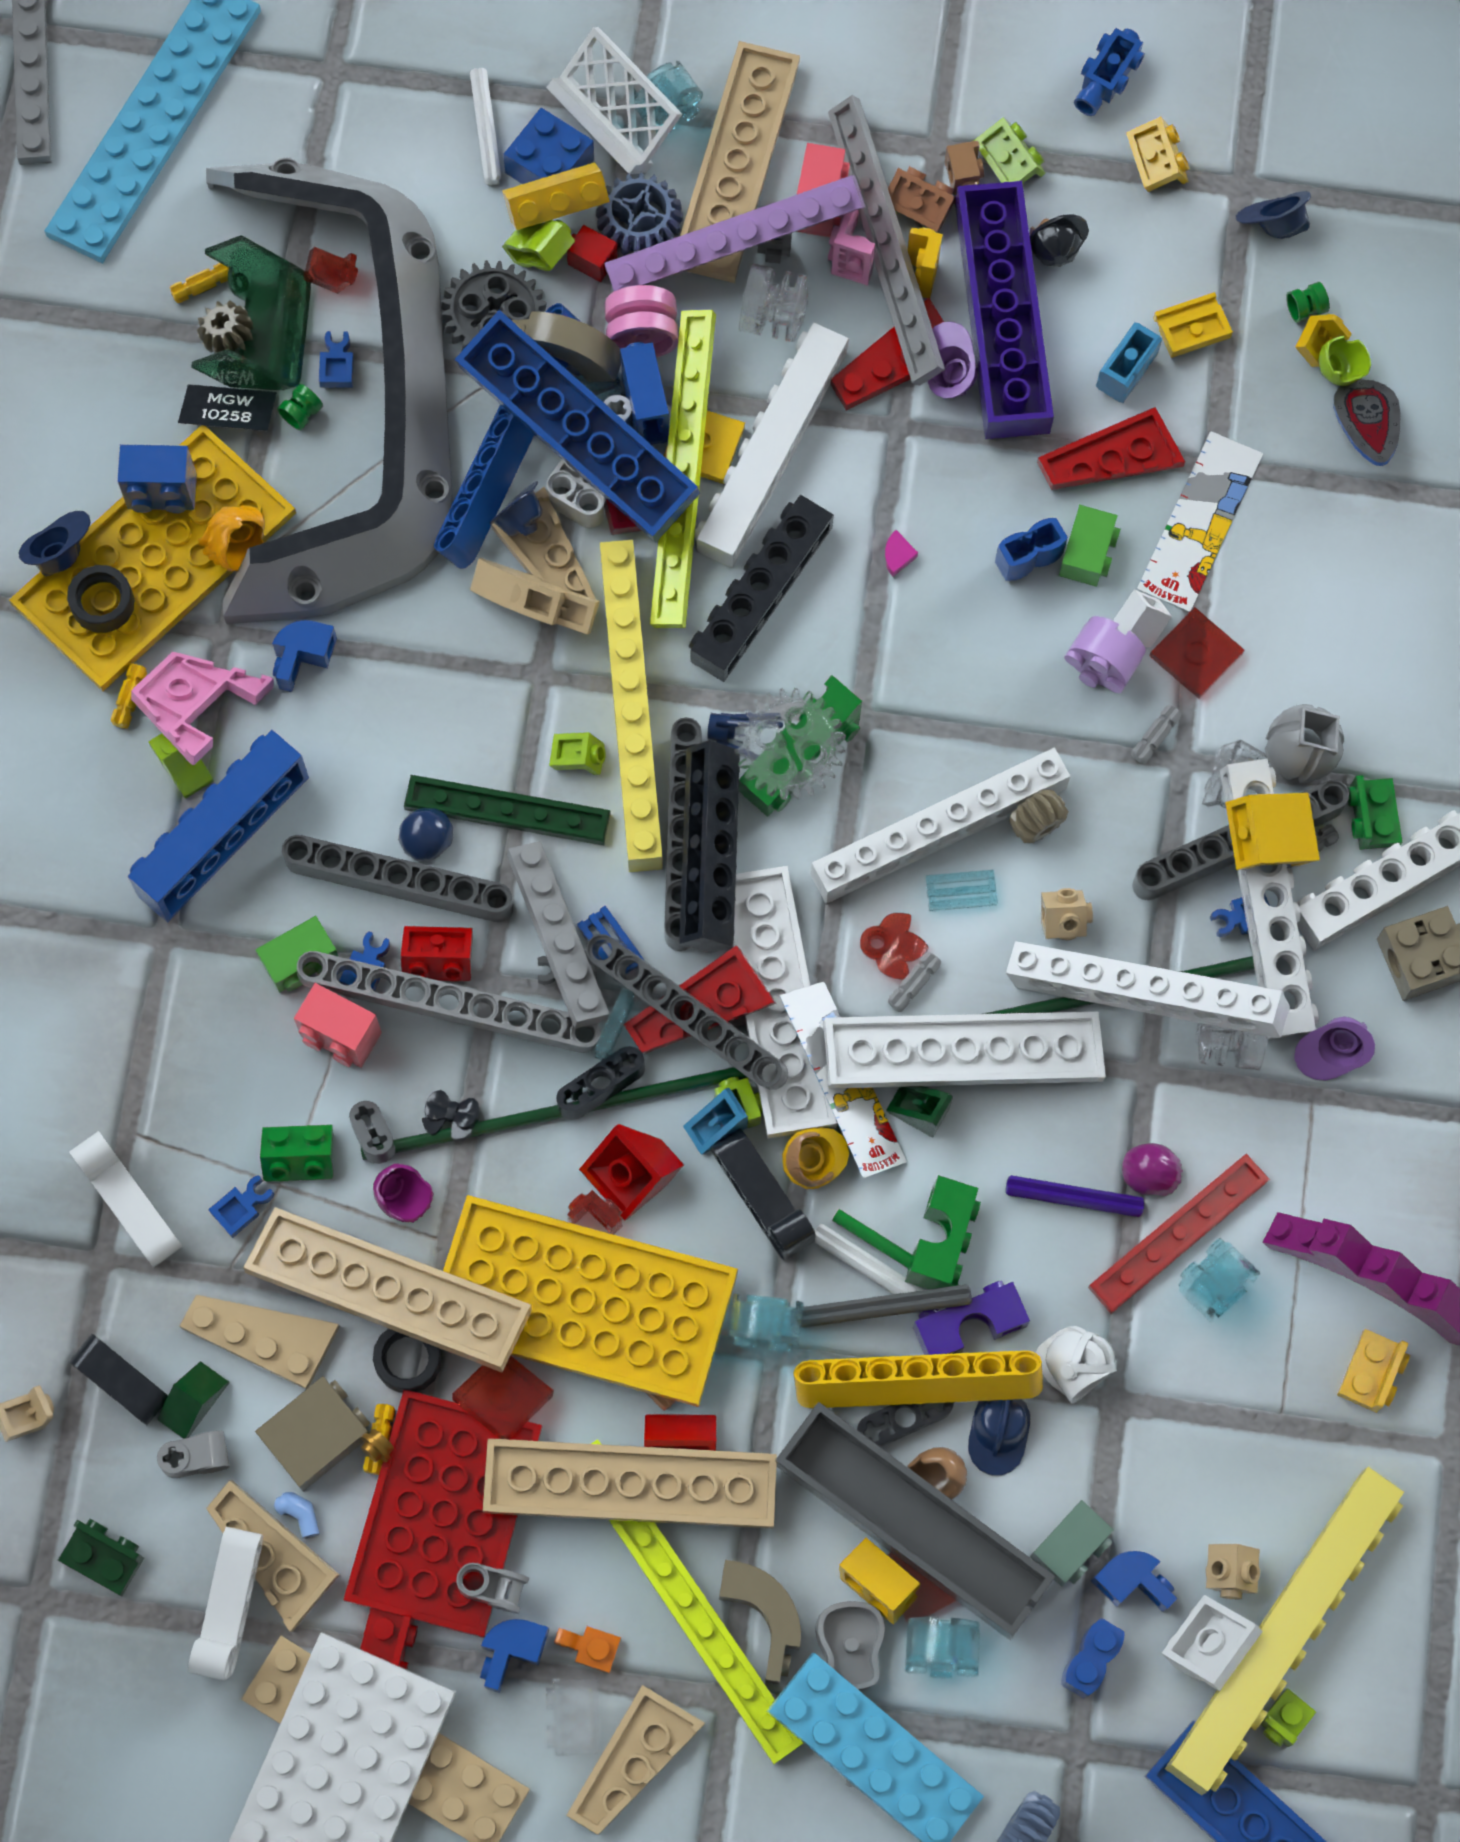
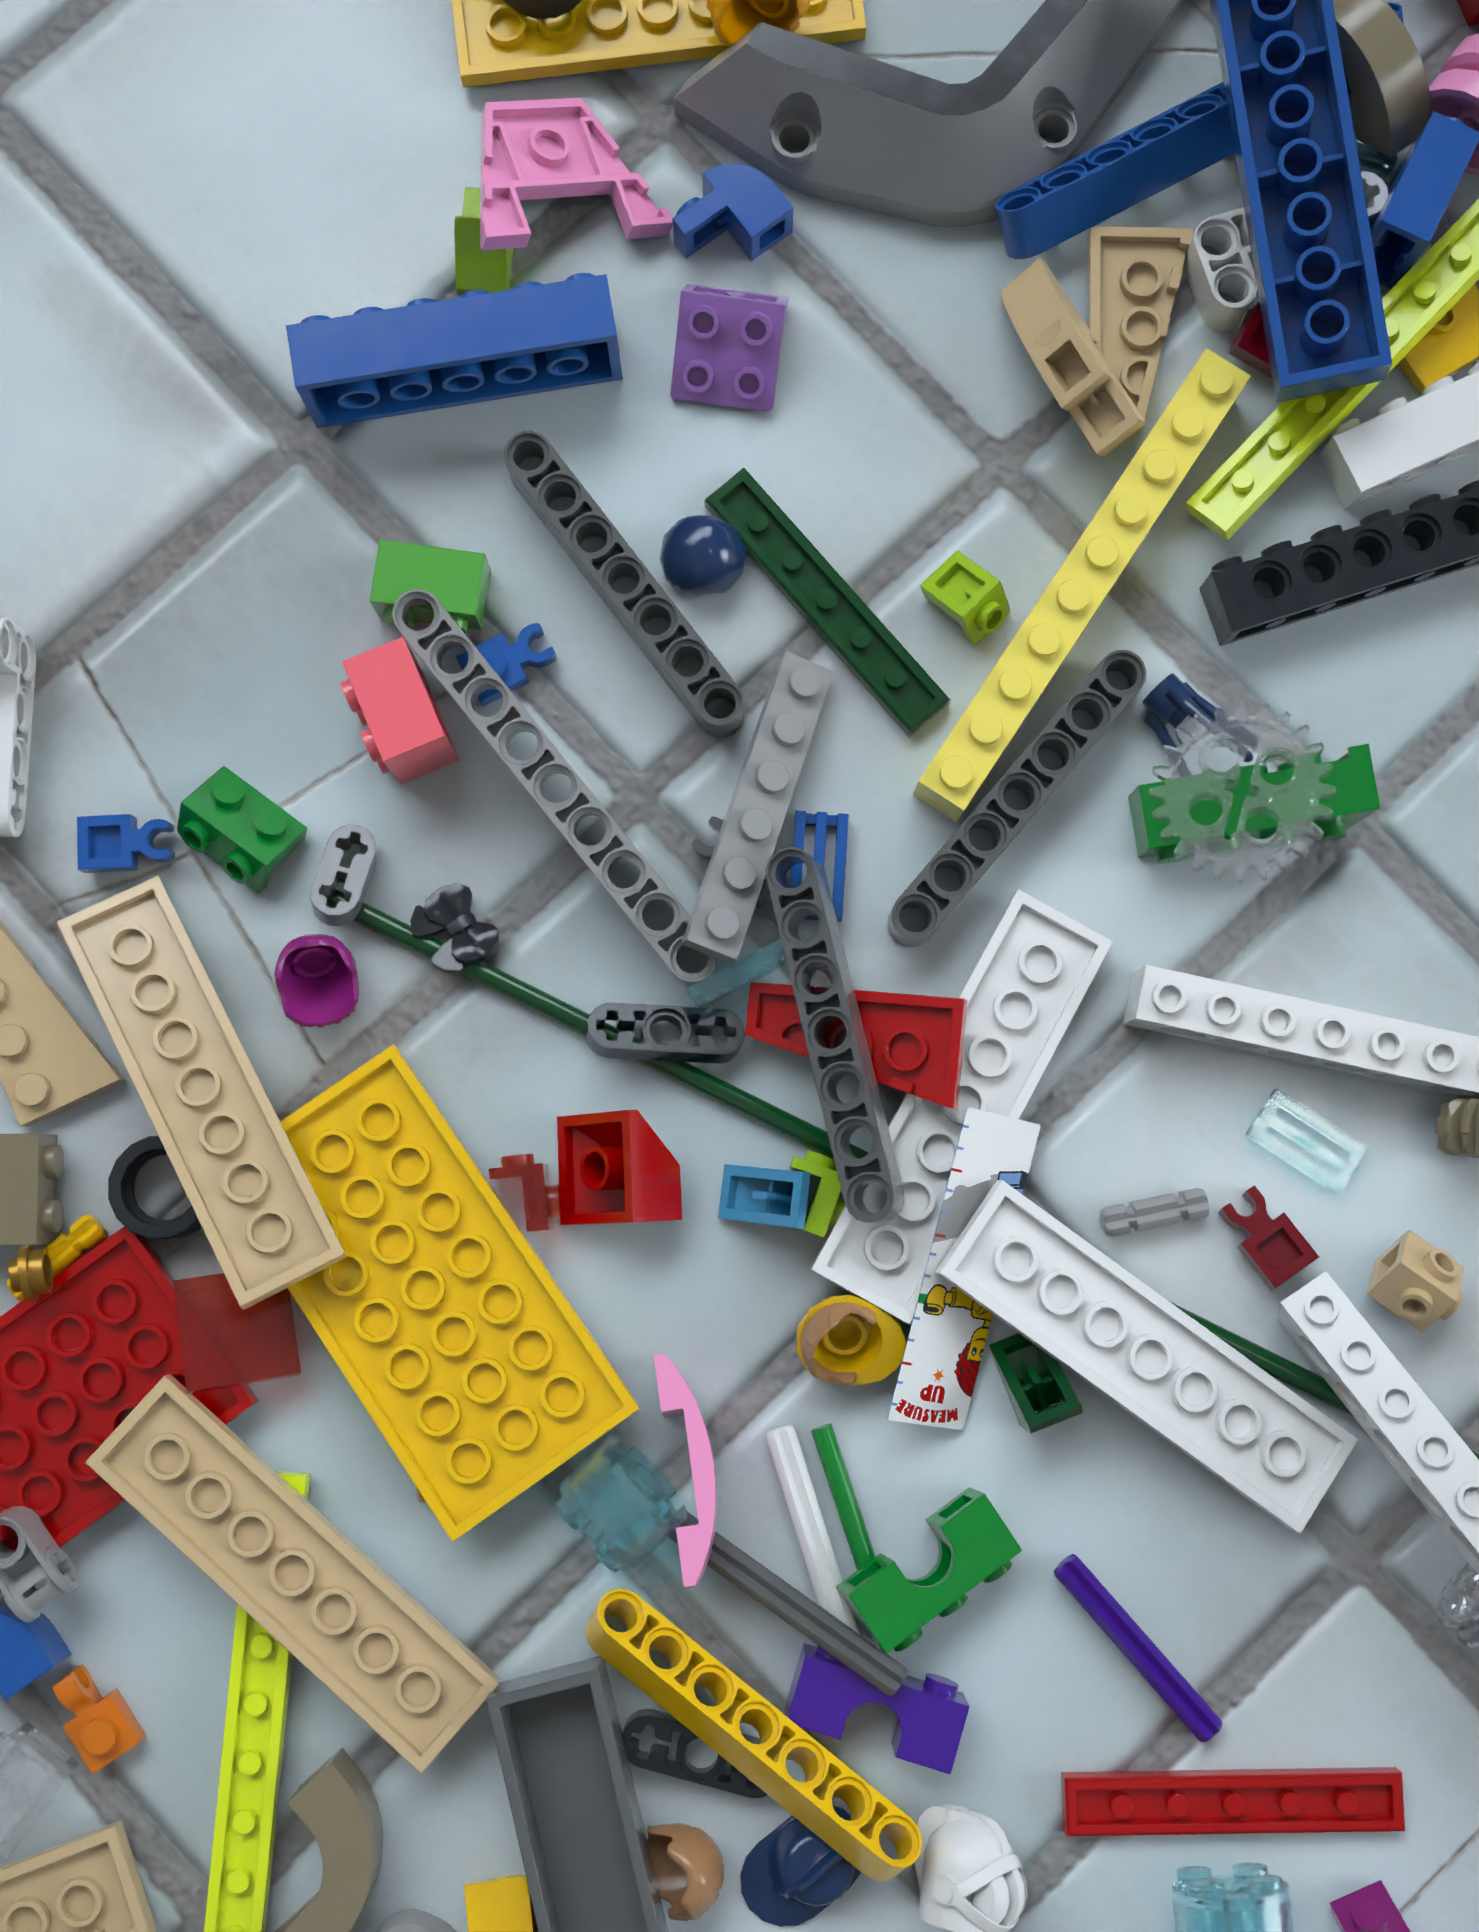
camera: 40 degrees right, 10 degrees up
(121, 715) = (460, 132): yellow axle -> none
(353, 719) = (728, 347): none -> medium lavender bracket
(437, 952) = (597, 713): red bracket -> none
(520, 513) = (1133, 236): dark blue piece -> none
(680, 1431) = (412, 1549): red panel -> none
(709, 847) = (1033, 844): black brick -> none
(755, 1252) = (694, 1540): none -> bright pink slope
(779, 1220) = (749, 1336): black beam -> none
(898, 945) = (1170, 1150): clear red plate -> none
(983, 953) = (1271, 1246): none -> dark red plate
(1152, 1169) = (1262, 1693): magenta hair -> none

